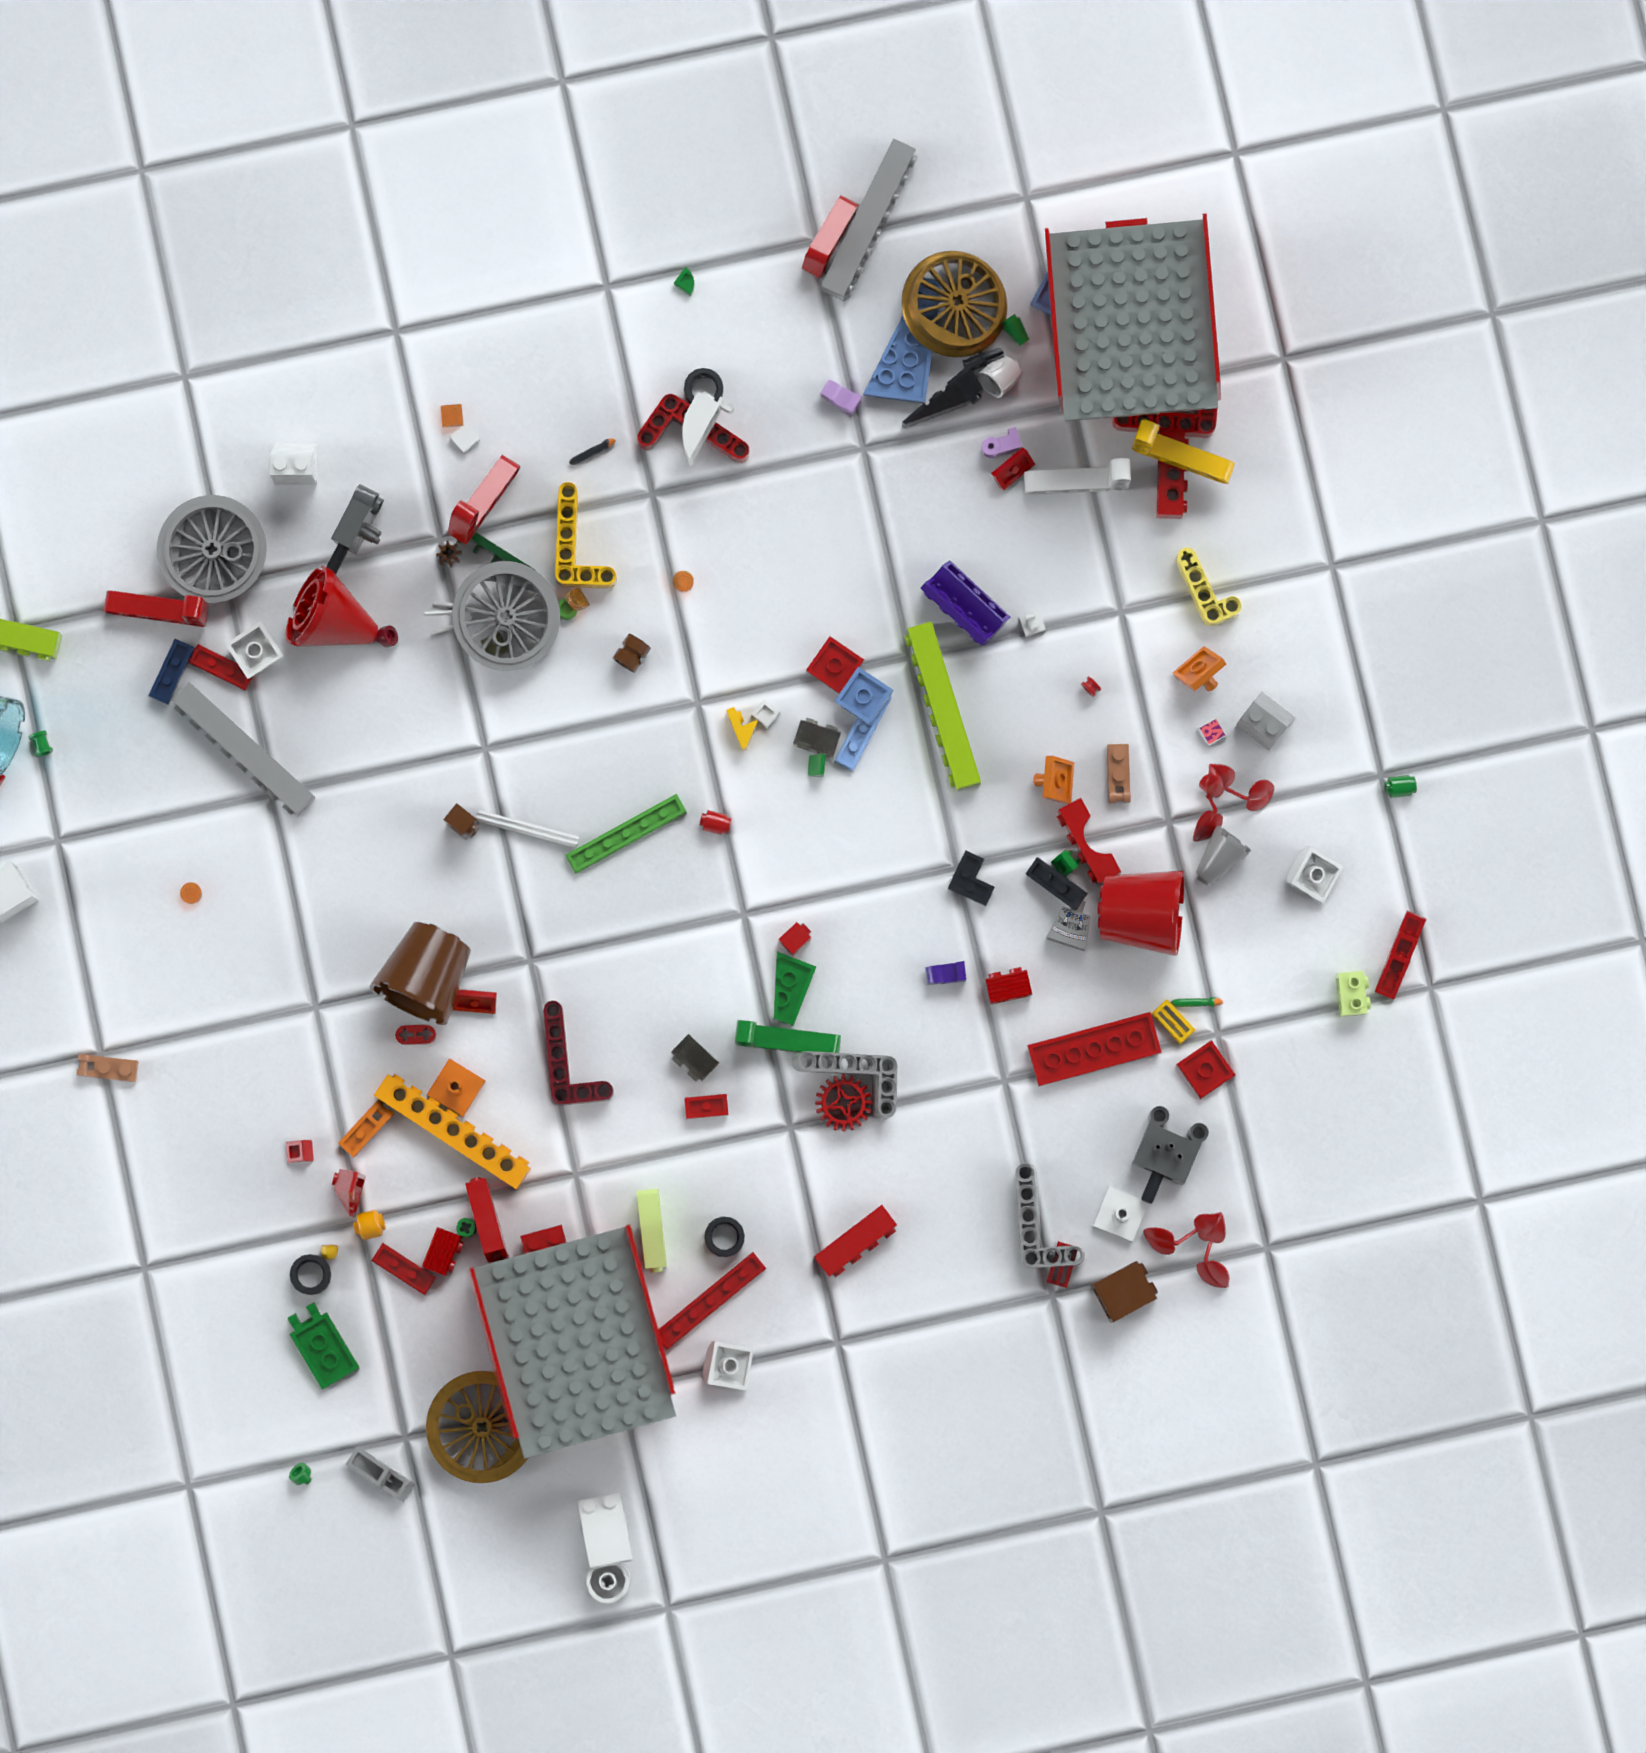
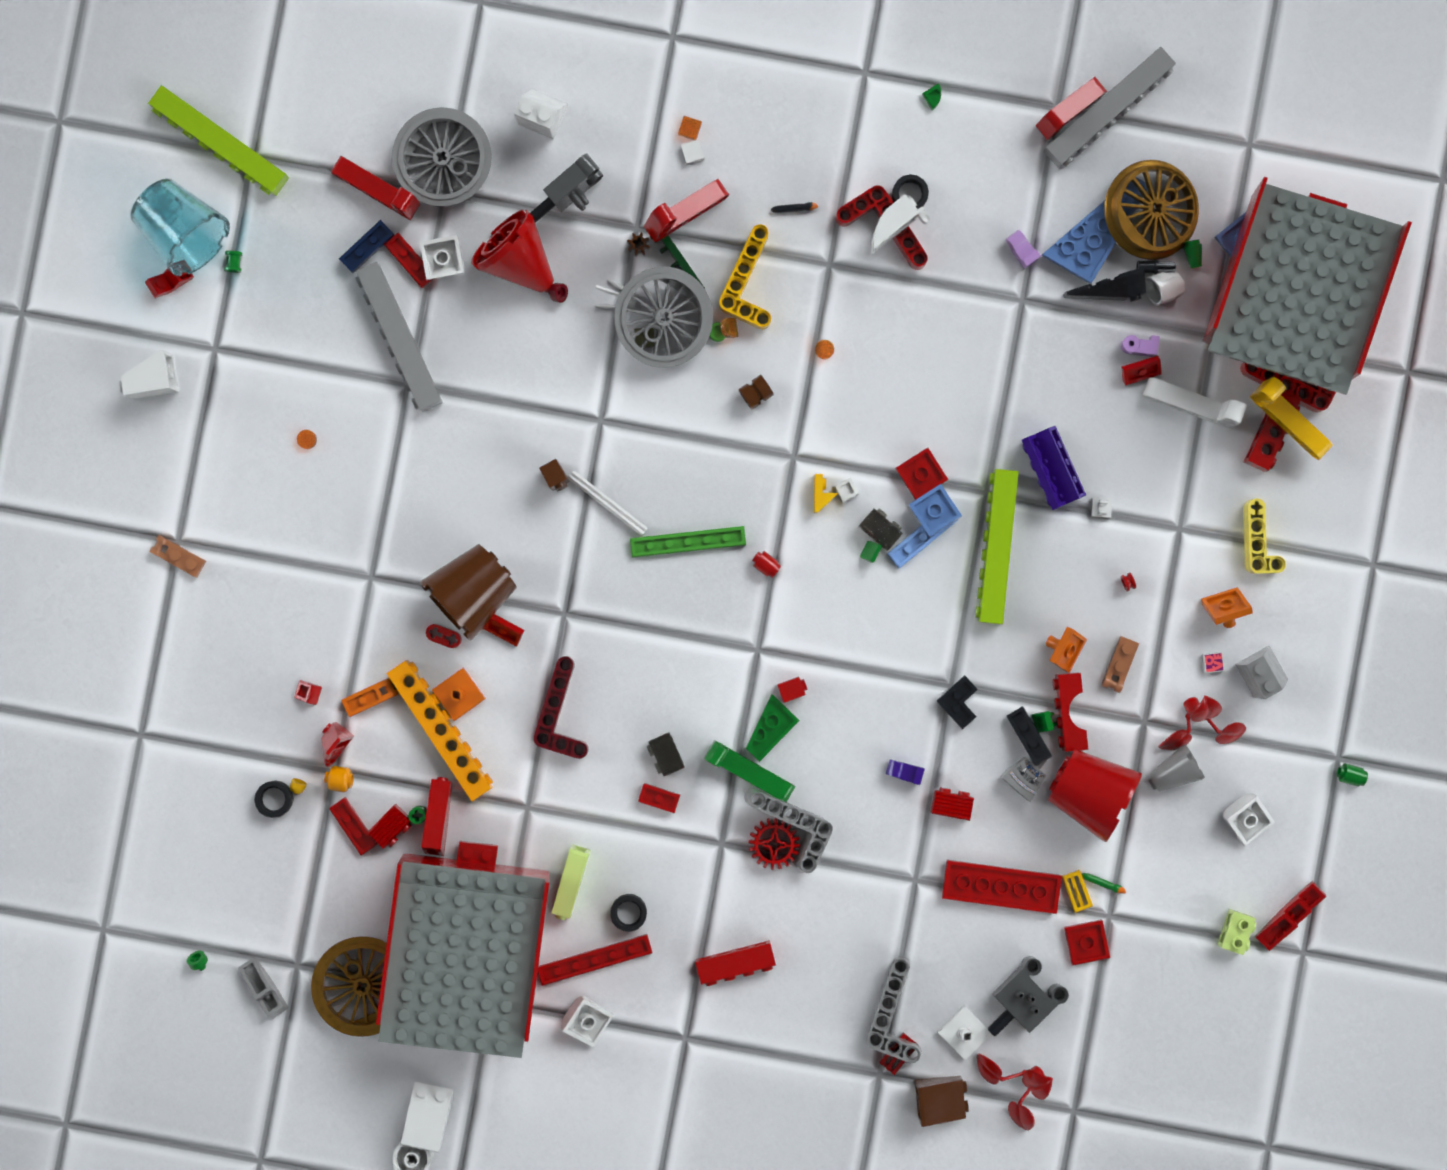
camera: 25 degrees right, 5 degrees up
(322, 1347) = (259, 862): green tile -> none

